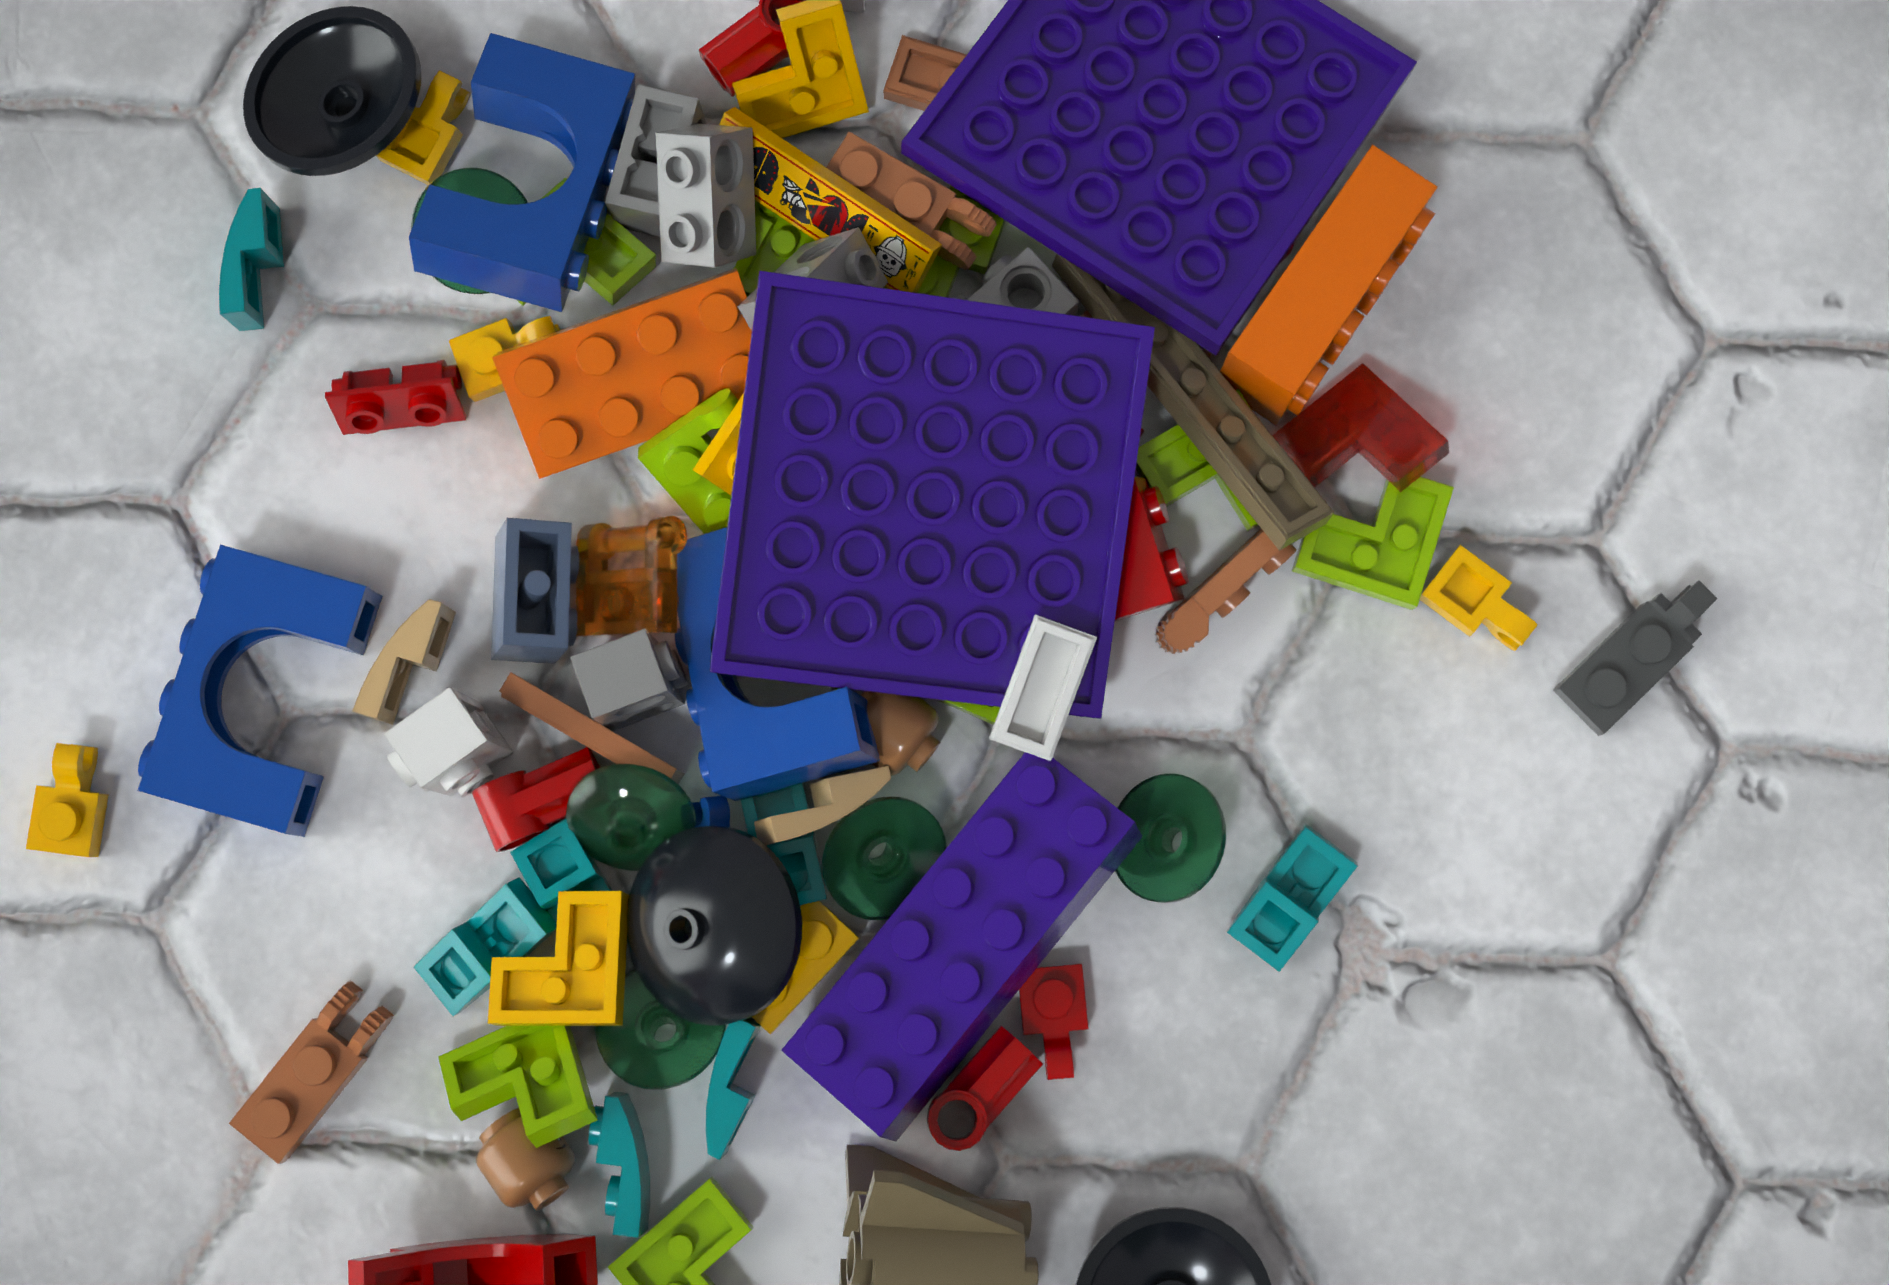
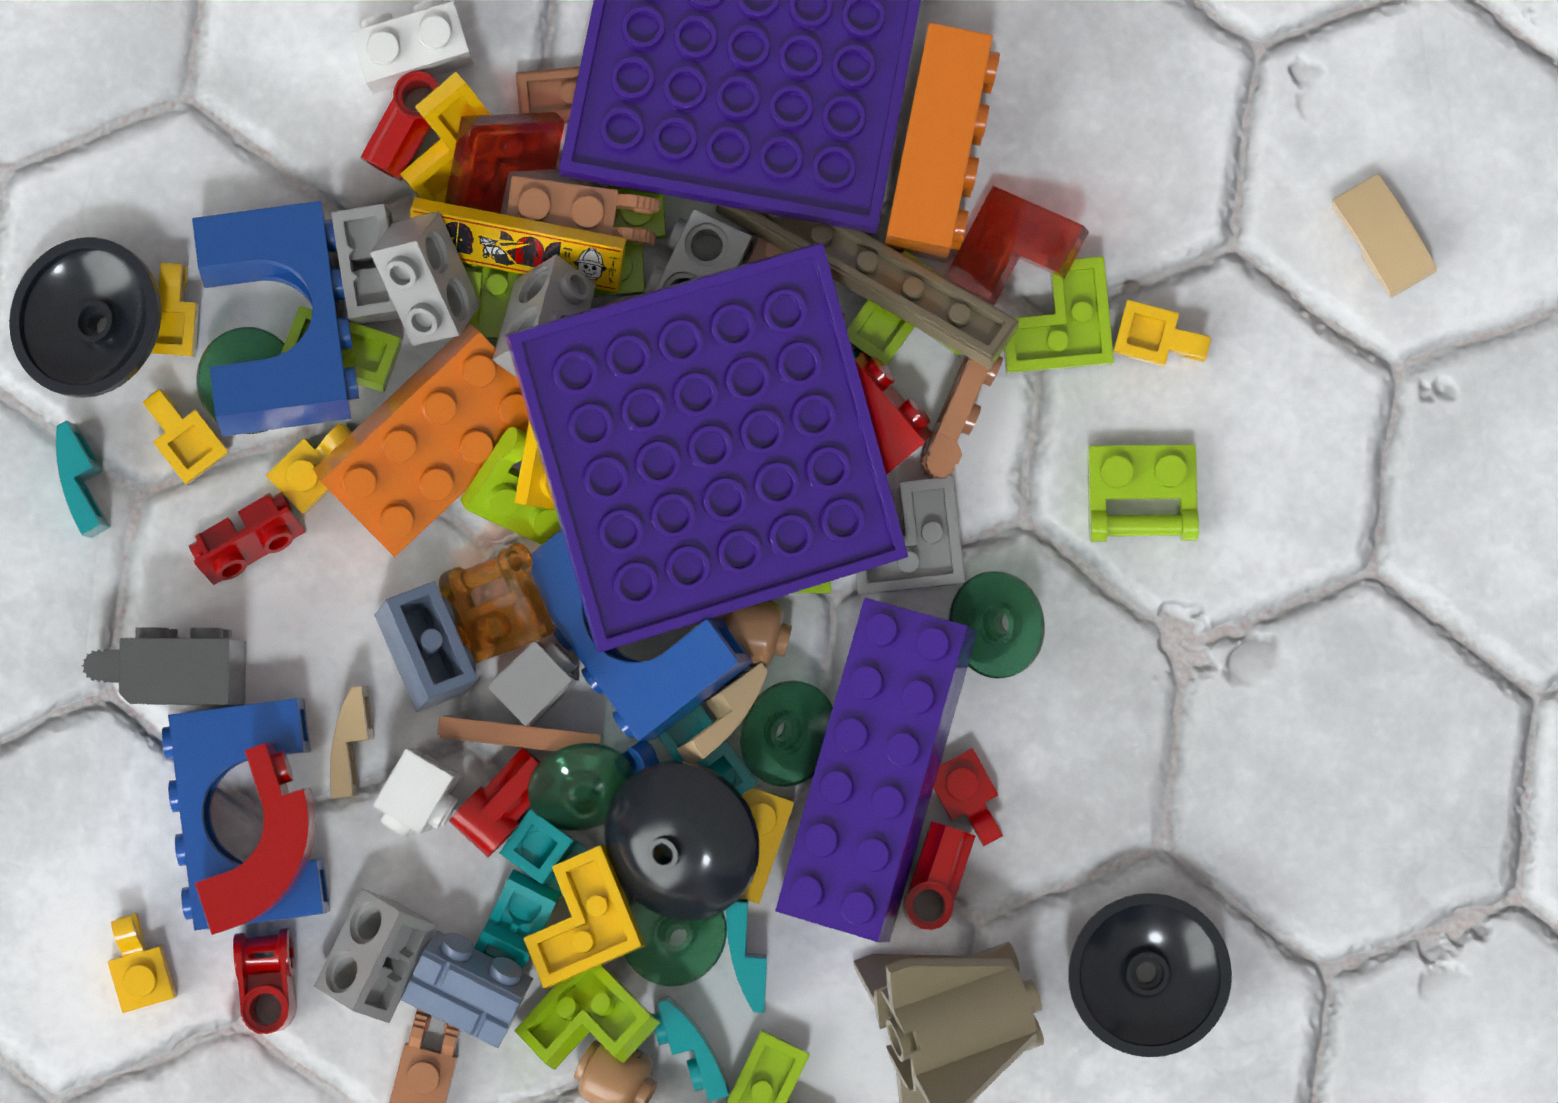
camera: 25 degrees left, 5 degrees up
(196, 876) = (265, 976): none -> red piece
(252, 496) = (174, 670): none -> dark grey hinge
(262, 744) = (279, 856): none -> red arch
(321, 906) = (375, 956): none -> light grey brick
(383, 267) = (187, 442): none -> yellow plate
(406, 986) = (467, 987): none -> sand blue brick
(845, 93) = (497, 145): none -> clear red plate
(1042, 687) = (854, 554): white tile -> none
(1132, 713) = (930, 541): none -> light grey plate
(1292, 897) = (1111, 627): teal slope -> none
(1396, 744) = (1142, 474): none -> lime plate
(1634, 657) = (1297, 328): dark grey hinge -> none
(1775, 595) = (1385, 235): none -> tan slope

